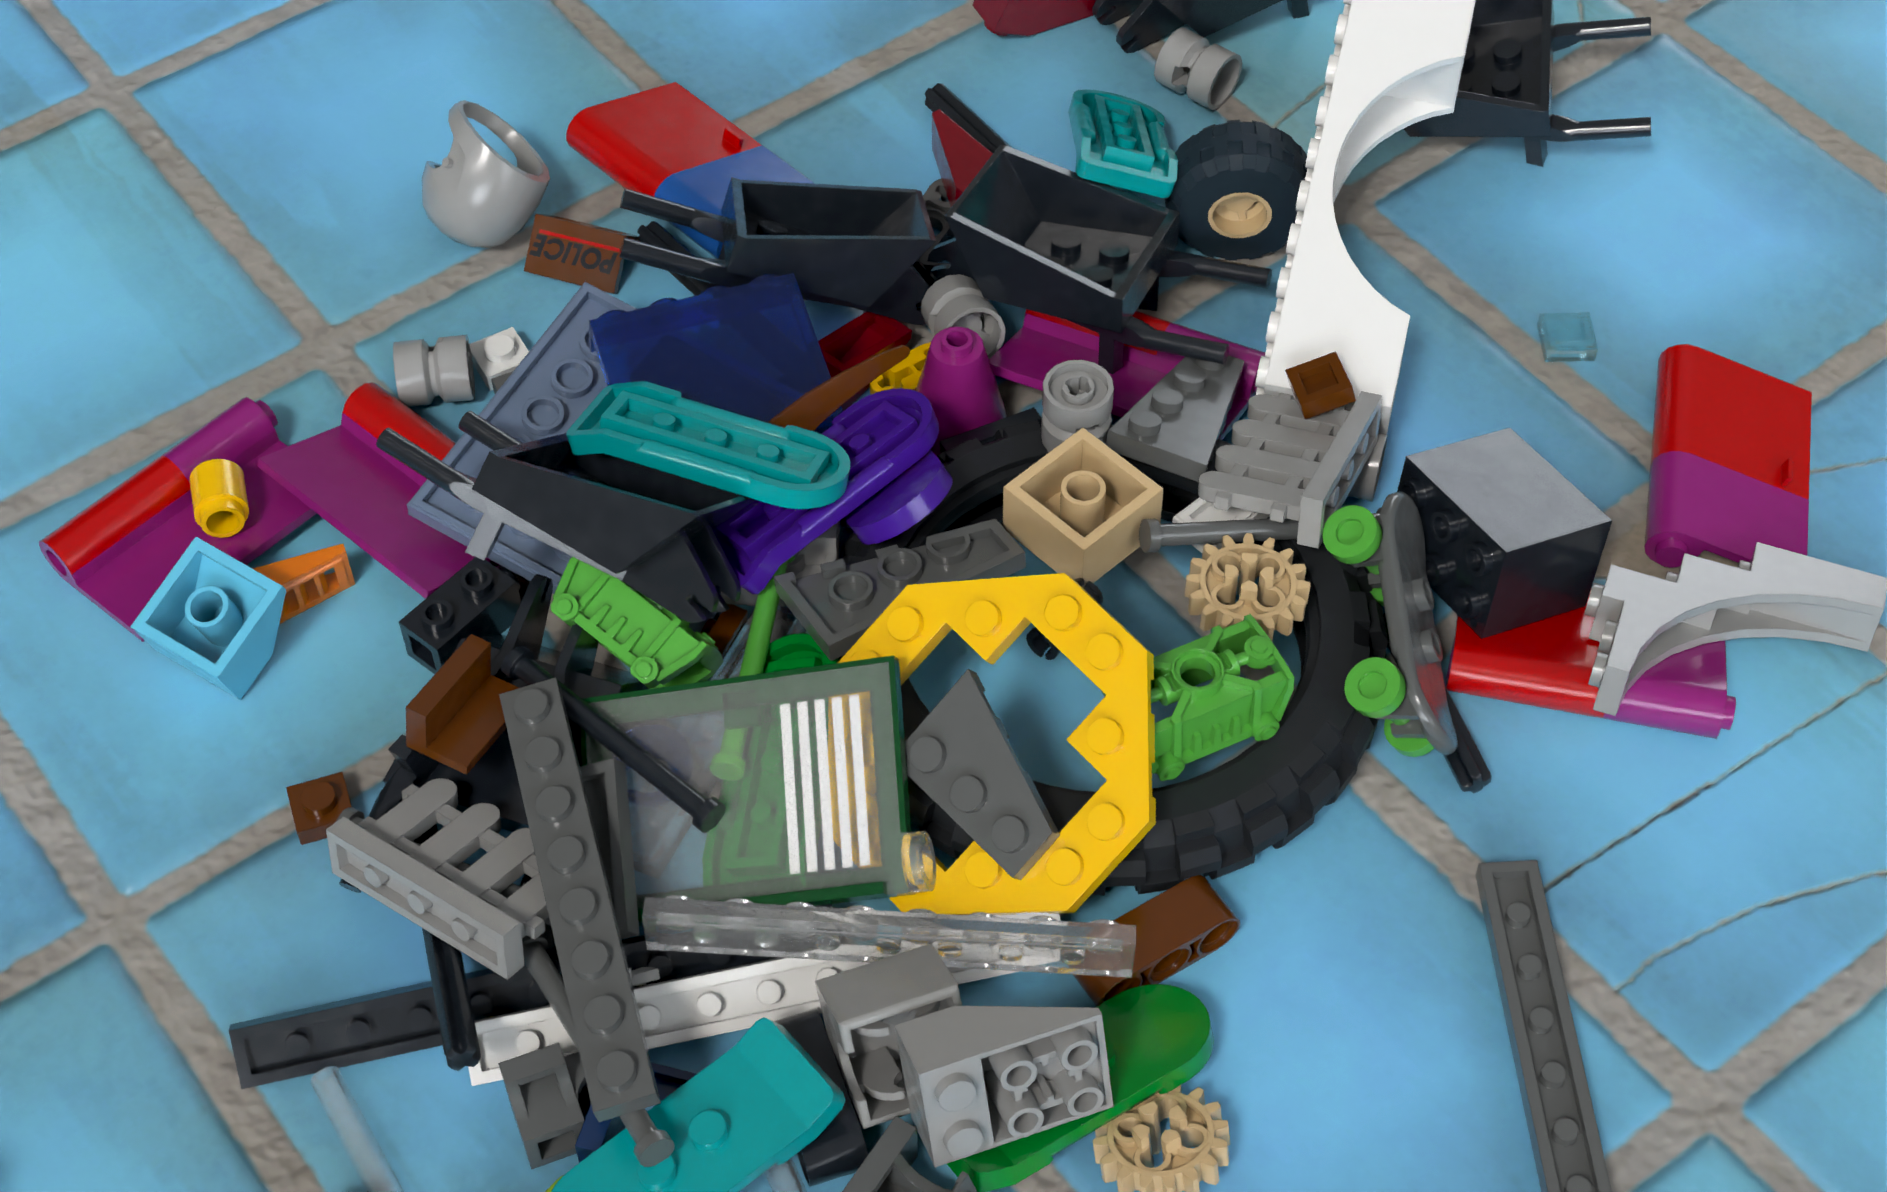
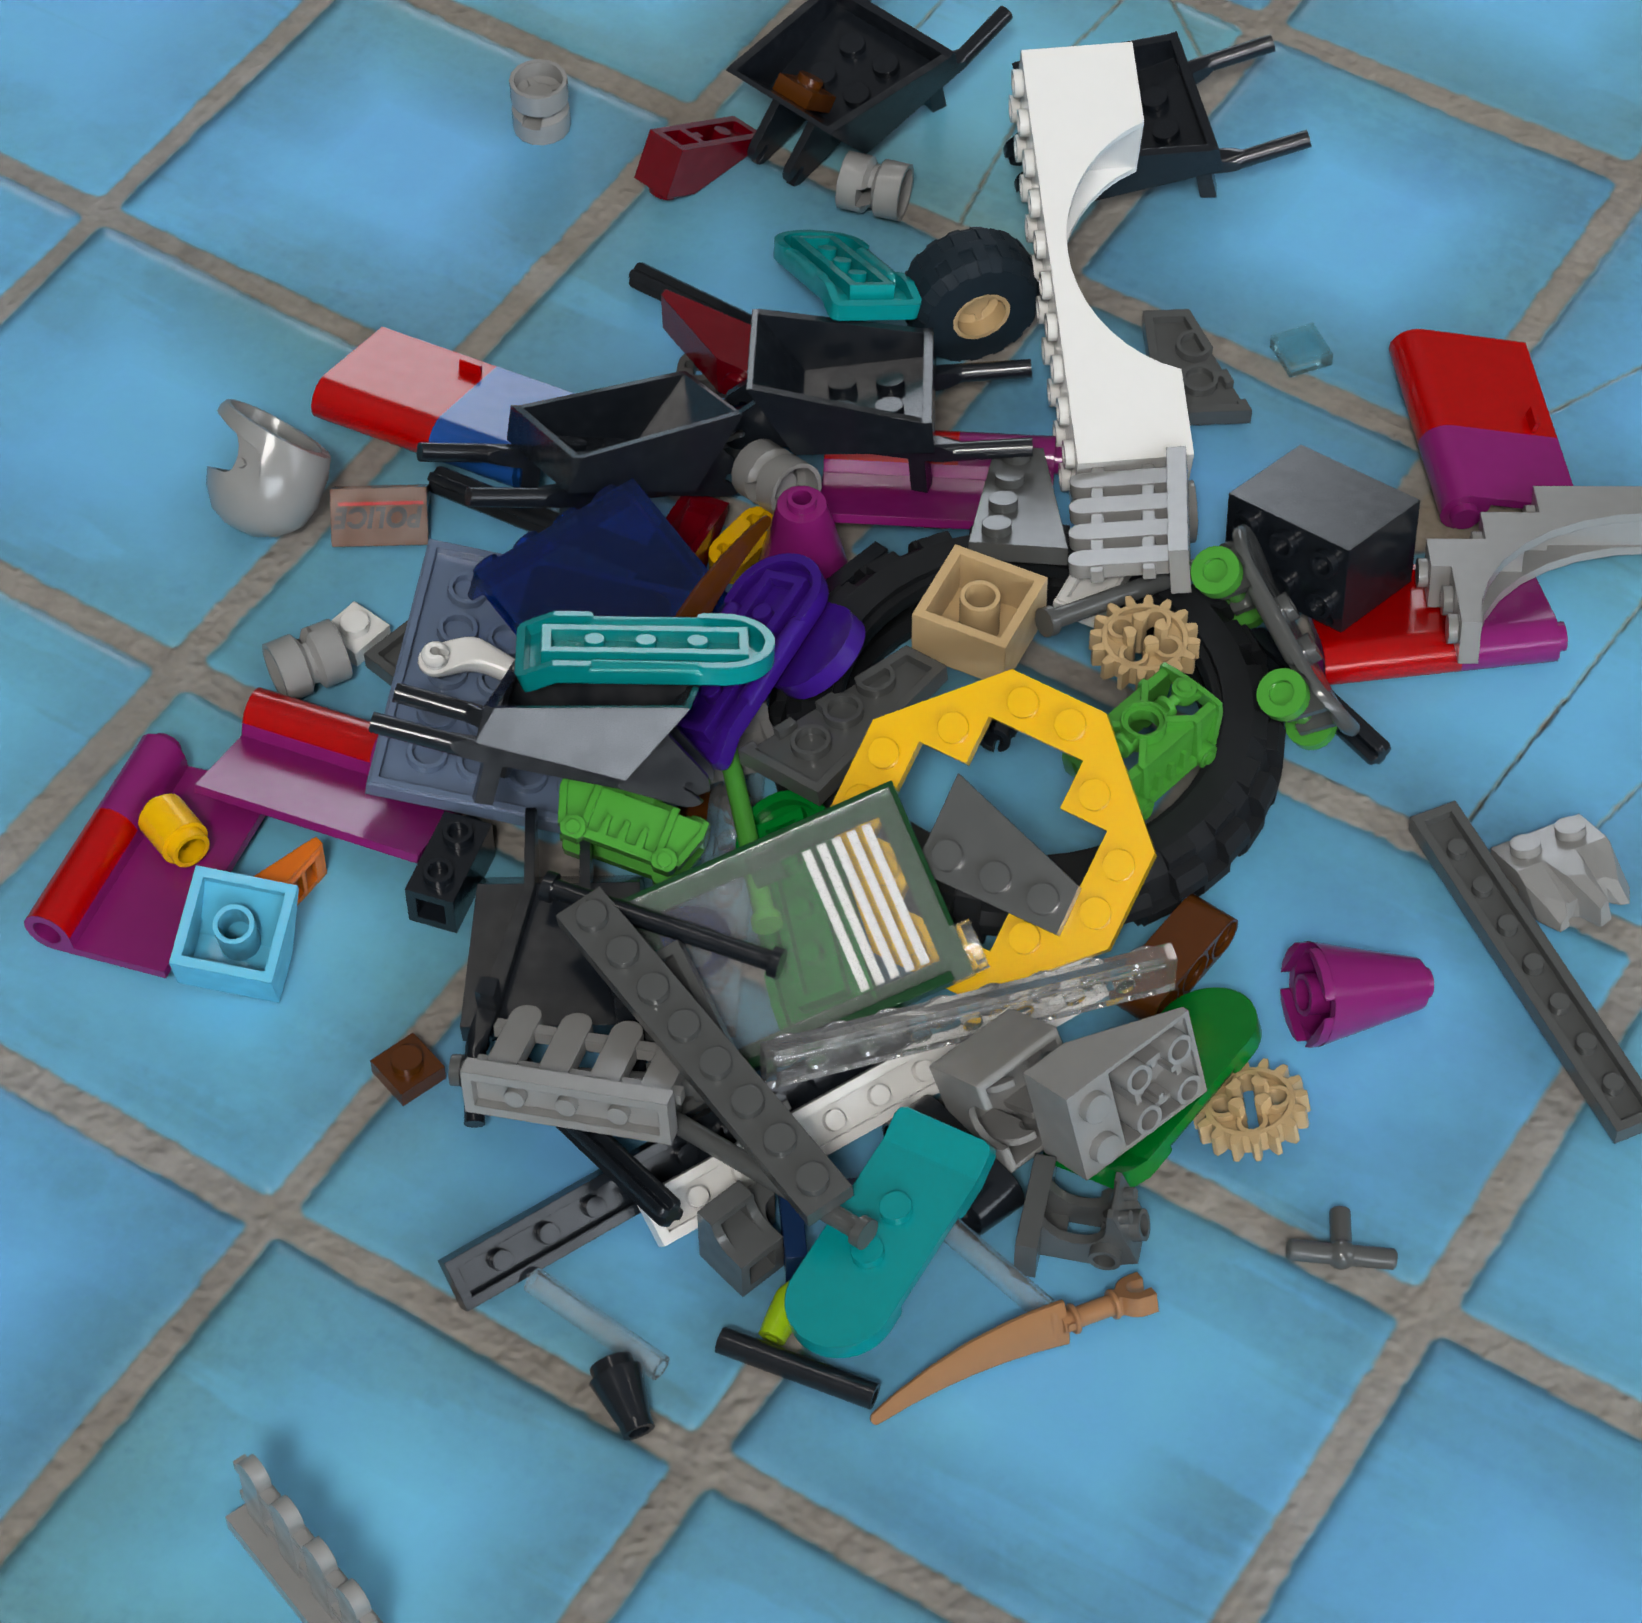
camera: 20 degrees left, 0 degrees up
(458, 709) = (525, 940): reddish brown panel -> none
(547, 402) = (462, 656): none -> white arm
(1073, 398) = (932, 524): light grey wheel -> none
(1320, 385) = (1131, 451): reddish brown plate -> none
(1330, 1040) = (1348, 990): none -> magenta cone
(1440, 330) = (1180, 342): none -> dark grey wing
(1631, 980) = (1564, 872): none -> light grey plate

